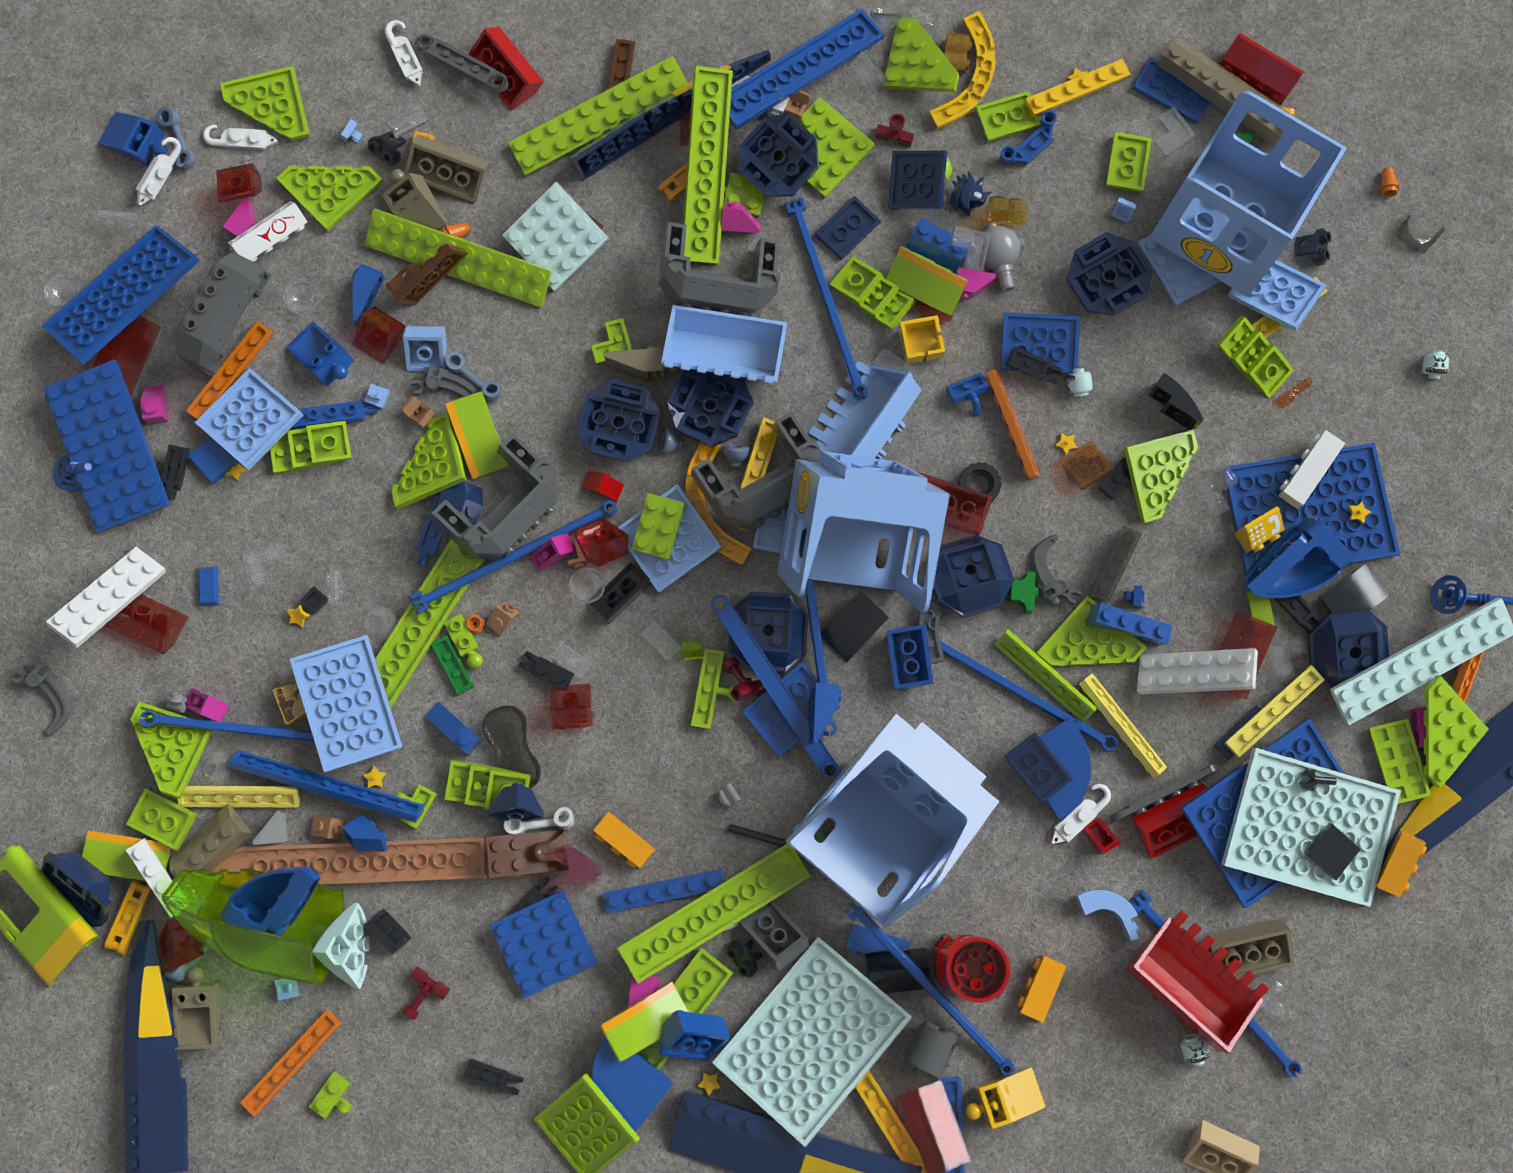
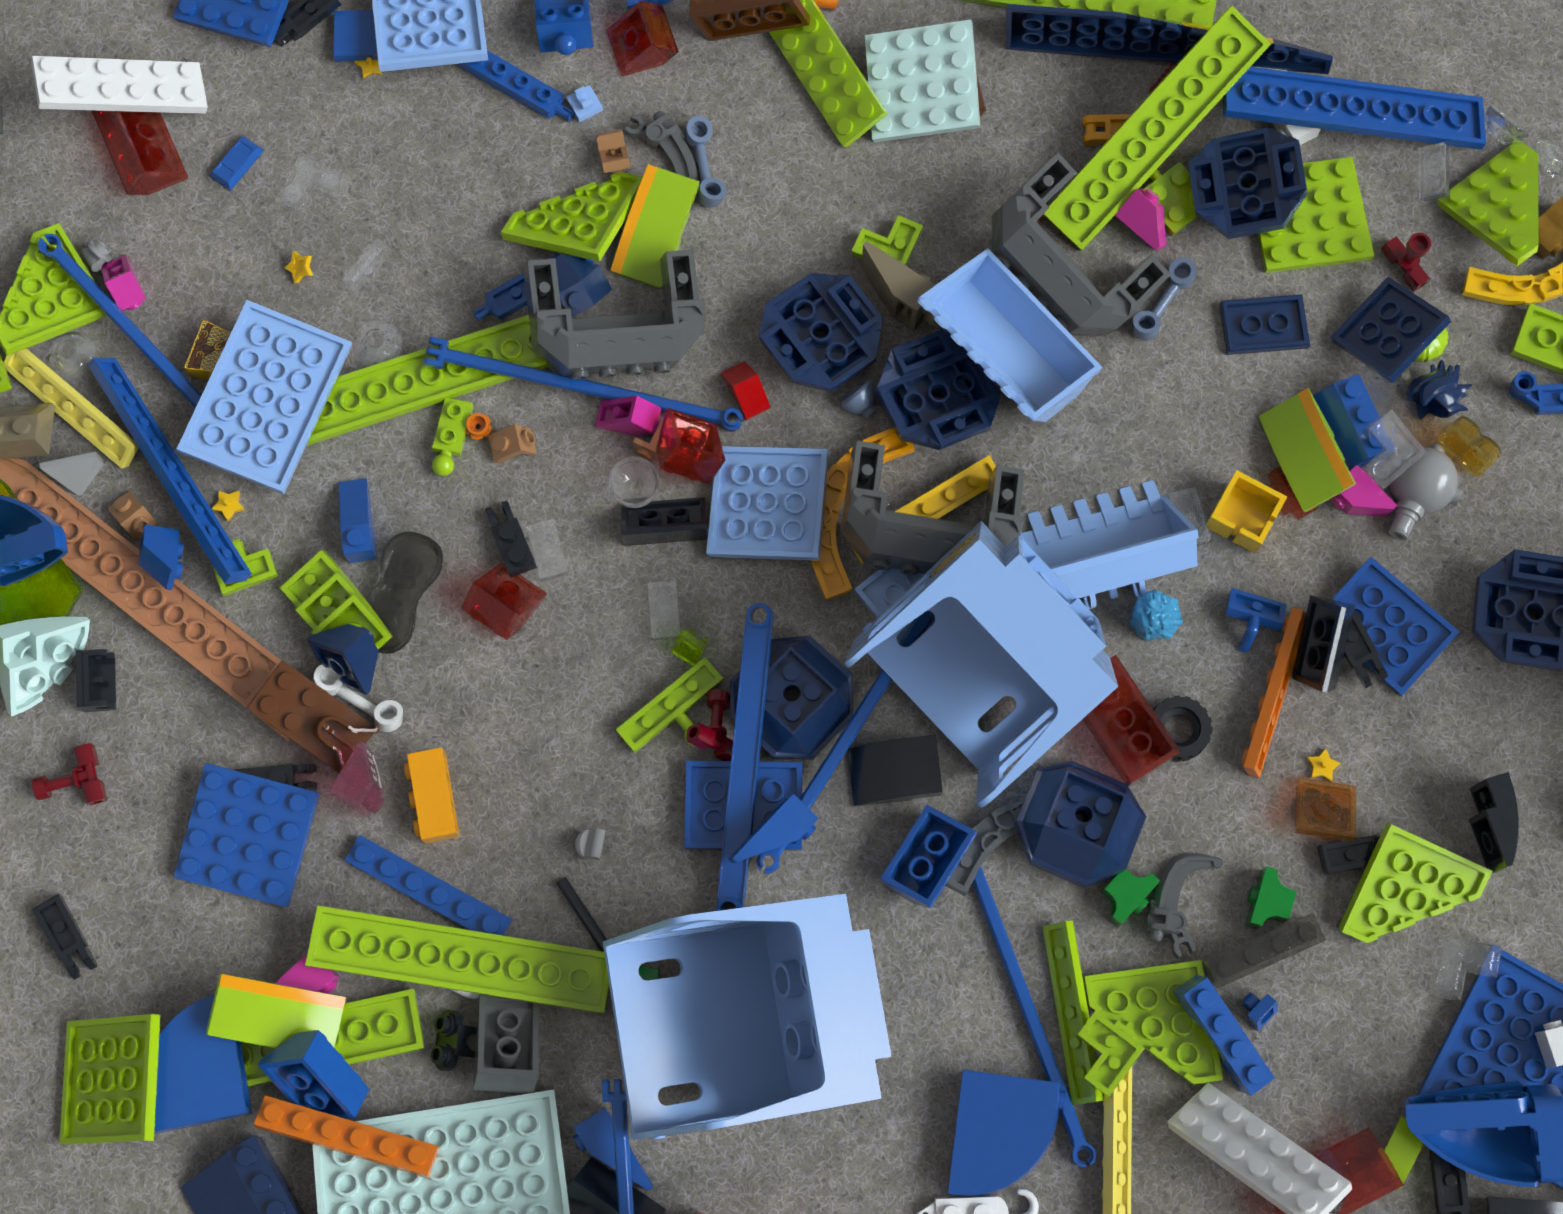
camera: 40 degrees right, 5 degrees down
(311, 447) = (467, 102): lime slope -> none
(314, 599) = (331, 263): black plate -> none
(424, 347) = (679, 90): light blue slope -> none
(452, 665) = (415, 451): green tile -> none
(658, 526) = (767, 479): lime plate -> none
(709, 1082) = (291, 1152): yellow piece -> none
(734, 1051) = (346, 1136): none -> orange plate
(735, 453) = (923, 471): sand blue brick -> none
(783, 234) = (1147, 323): none -> sand blue piece
(797, 104) = (1319, 146): medium nougat bracket -> none
(826, 296) = (1175, 381): blue hinge -> none
(872, 293) = (1232, 417): lime slope -> none
(920, 434) = (1155, 616): none -> dark azure hair
(1017, 379) = (1323, 643): none -> black slope
(1038, 767) = (973, 1110): dark blue tile -> none
(1079, 382) = (1396, 707): light aqua head -> none
(1086, 677) = (1116, 1050): none -> lime plate
(1096, 536) = (1269, 899): none -> green brick
(1261, 530) = (1478, 1054): yellow slope -> none

